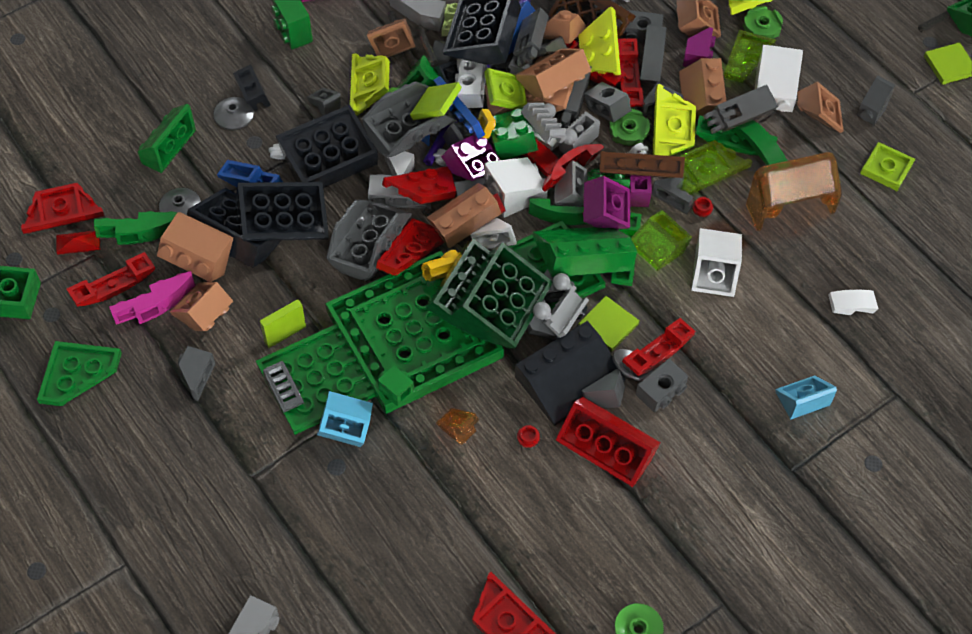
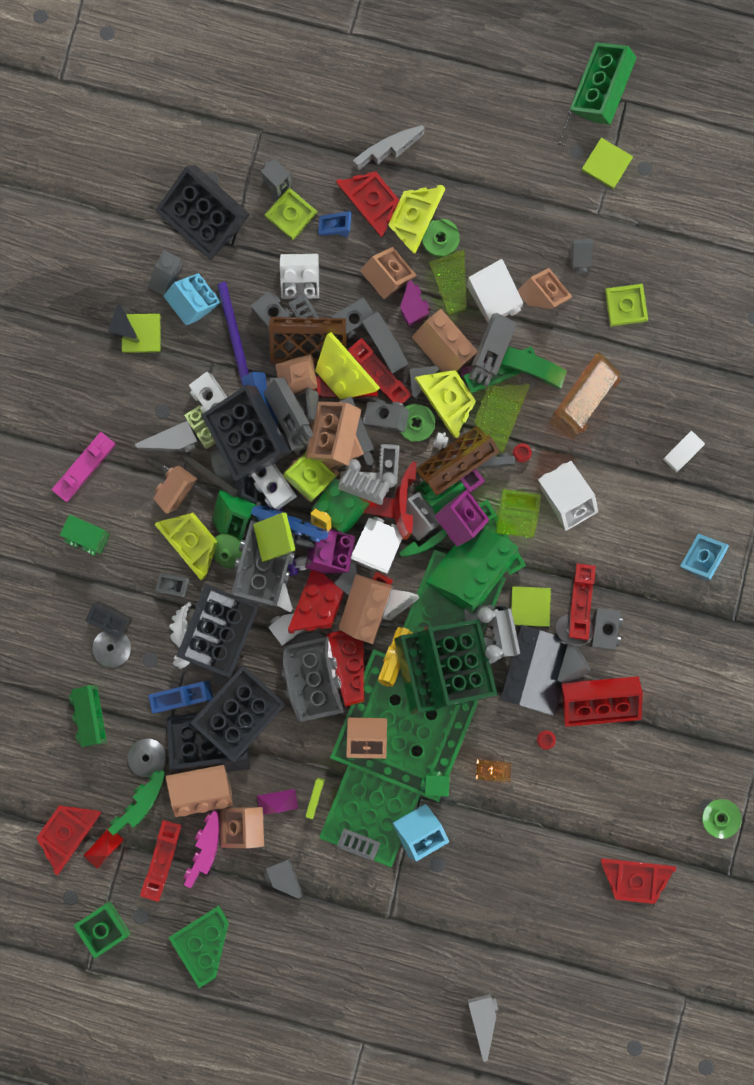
camera: 35 degrees left, 25 degrees up
(247, 312) = (278, 801): none -> magenta slope
(368, 305) = (366, 738): none -> nougat slope

